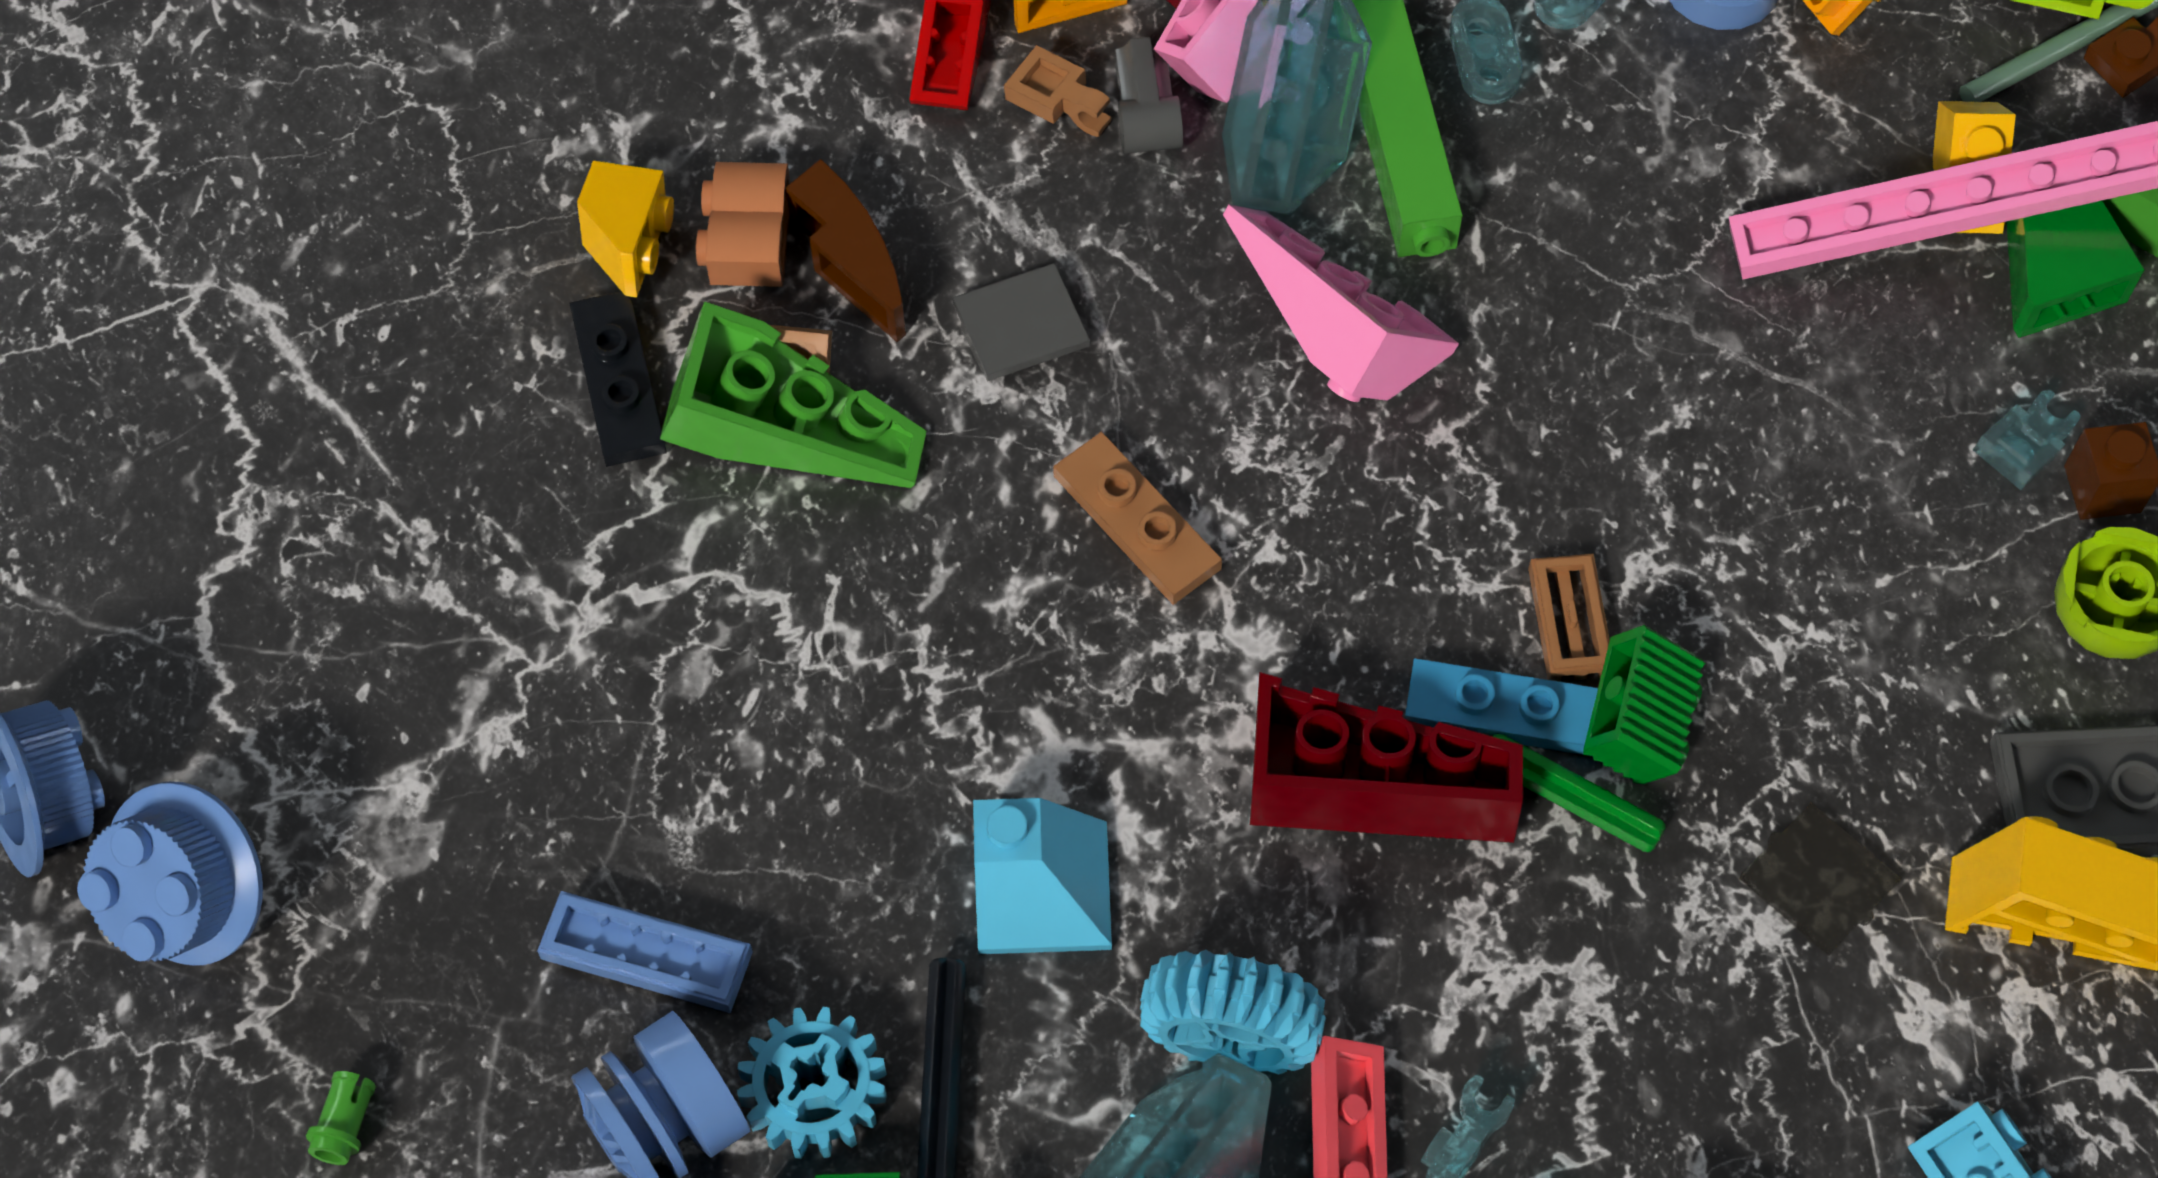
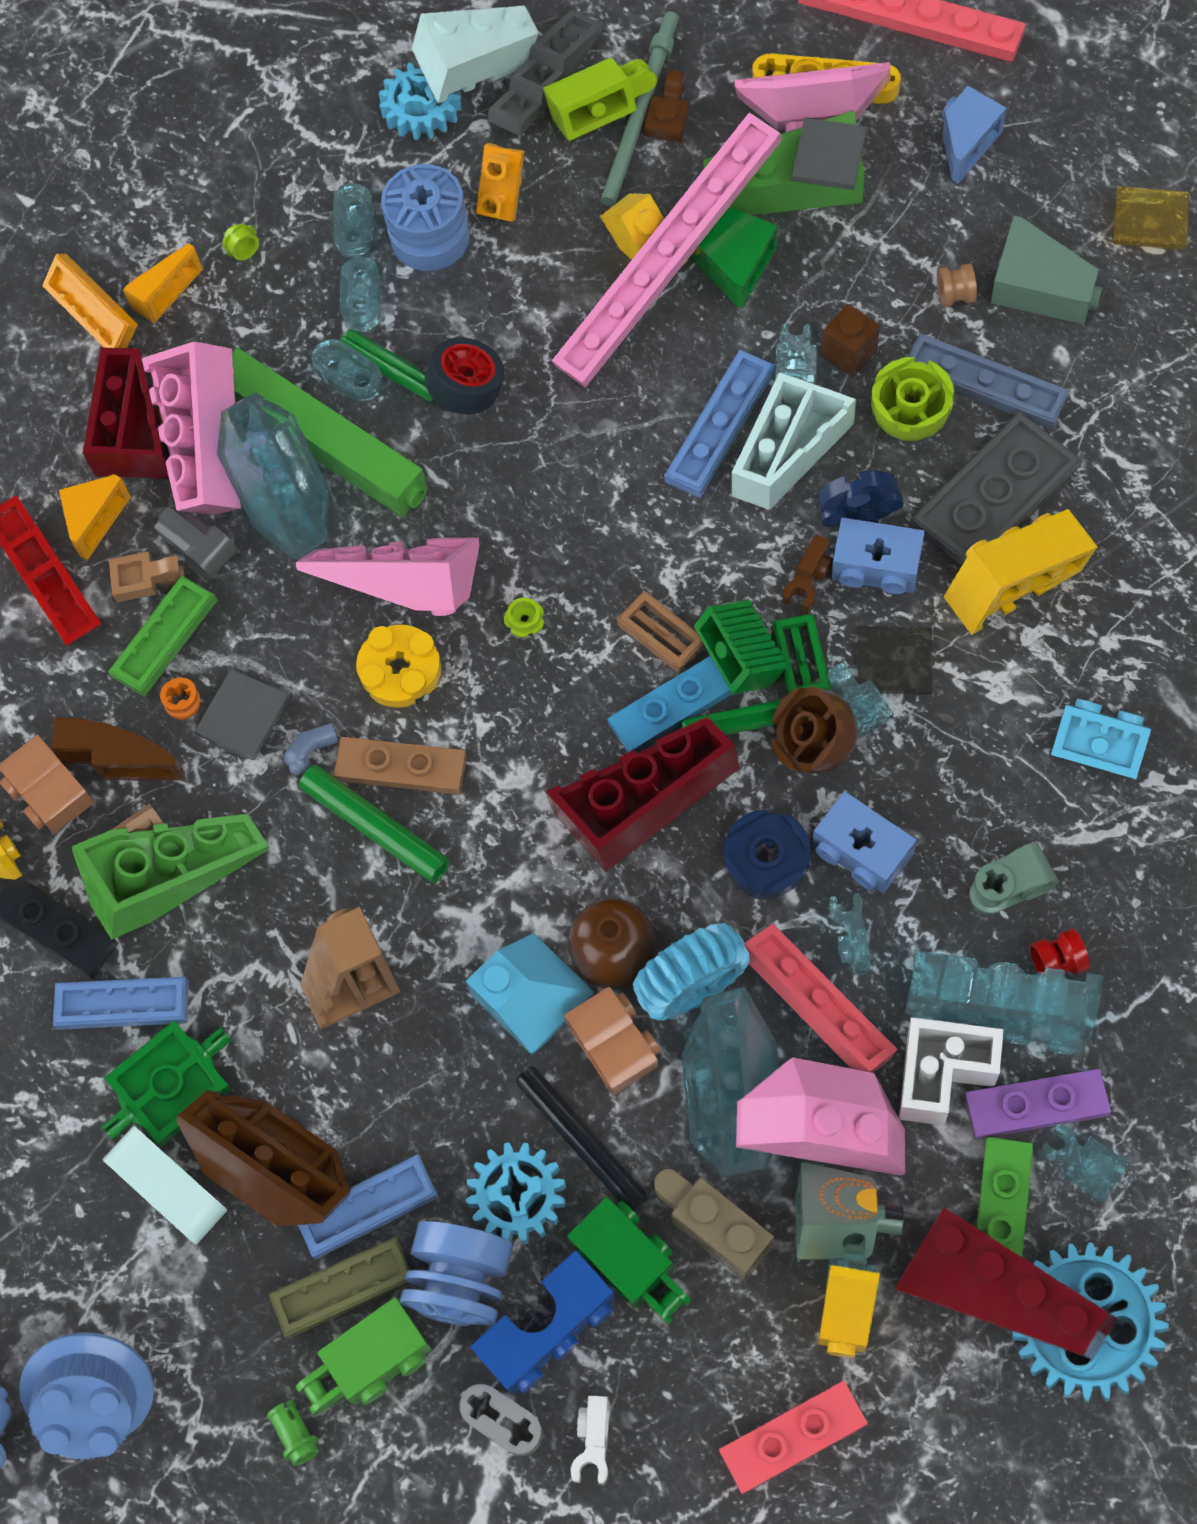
camera: 35 degrees left, 5 degrees up
(466, 740) = (165, 1185): none -> light aqua beam
(489, 1111) = (367, 1358): none -> bright green brick
(535, 1011) = (340, 1288): none -> olive plate
(571, 638) = (164, 1081): none -> green plate
(589, 800) = (265, 1158): none -> reddish brown wedge
(607, 514) = (120, 1003): none -> medium blue plate
(866, 676) = (345, 969): none -> medium nougat wedge
(966, 265) = (184, 708): none -> orange bush
(1017, 171) = (162, 636): none -> bright green plate
(1048, 555) = (374, 823): none -> green piece
(1057, 408) = (305, 744): none -> sand blue arm
(1076, 1013) = (612, 1040): none -> nougat brick
(1180, 901) = (611, 942): none -> reddish brown cylinder
(1243, 377) = (387, 645): none -> yellow plate
(1432, 458) = (520, 608): none -> lime plate
(1445, 1001) = (760, 877): none -> dark blue plate
(1543, 86) = (389, 363): none -> green axle
(1585, 1013) = (854, 823): none -> medium blue brick
(1610, 154) = (464, 375): none -> black wheel
(1638, 871) = (814, 730): none -> reddish brown cylinder
(1684, 823) = (794, 624): none -> green tile
(1724, 892) = (864, 699): none -> clear light blue plate
(1816, 688) = (813, 566): none -> reddish brown plate
(1864, 442) = (719, 423): none -> medium blue tile
(1910, 741) = (863, 541): none -> medium blue brick
(1926, 521) = (789, 438): none -> light aqua wedge
(1944, 659) = (863, 499): none -> dark blue plate

